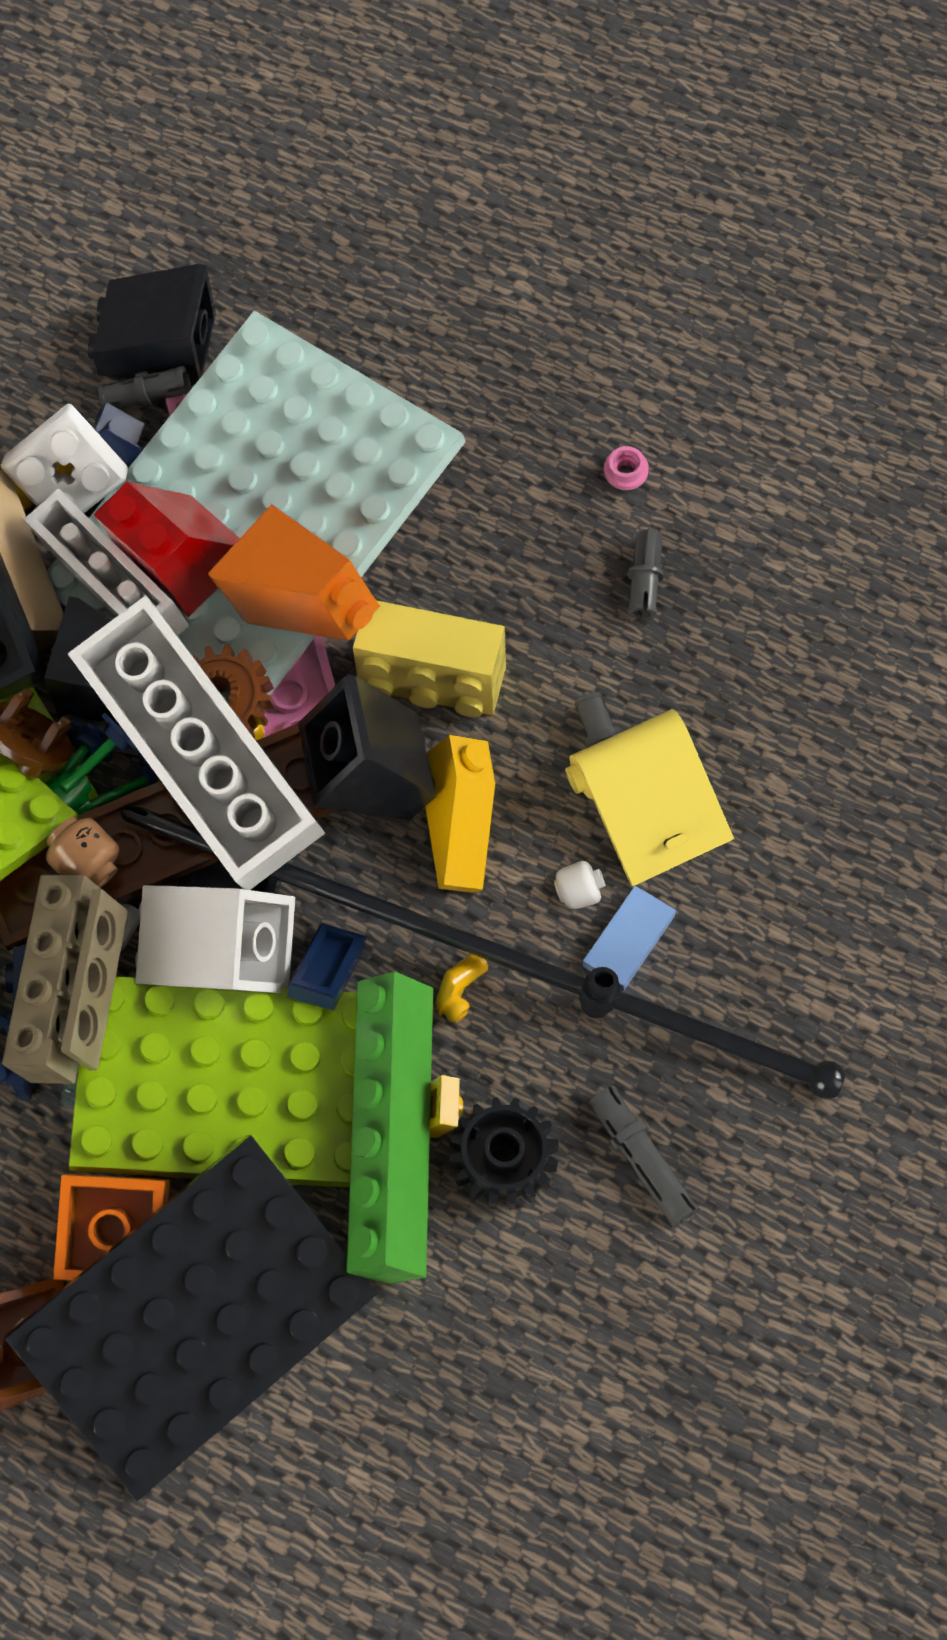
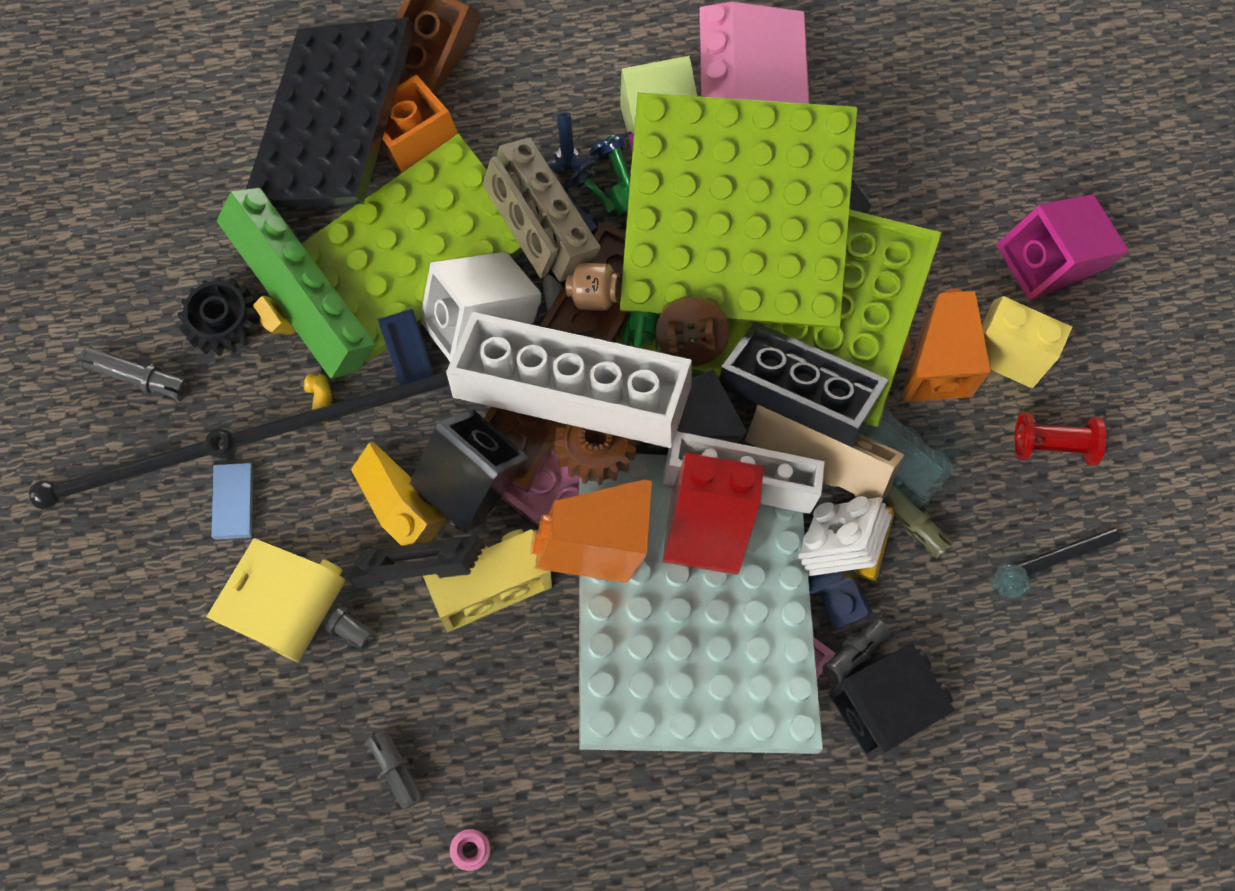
camera: 135 degrees right, 5 degrees up
(448, 656) = (453, 559): none -> black container
(579, 885) = (291, 515): white piece -> none

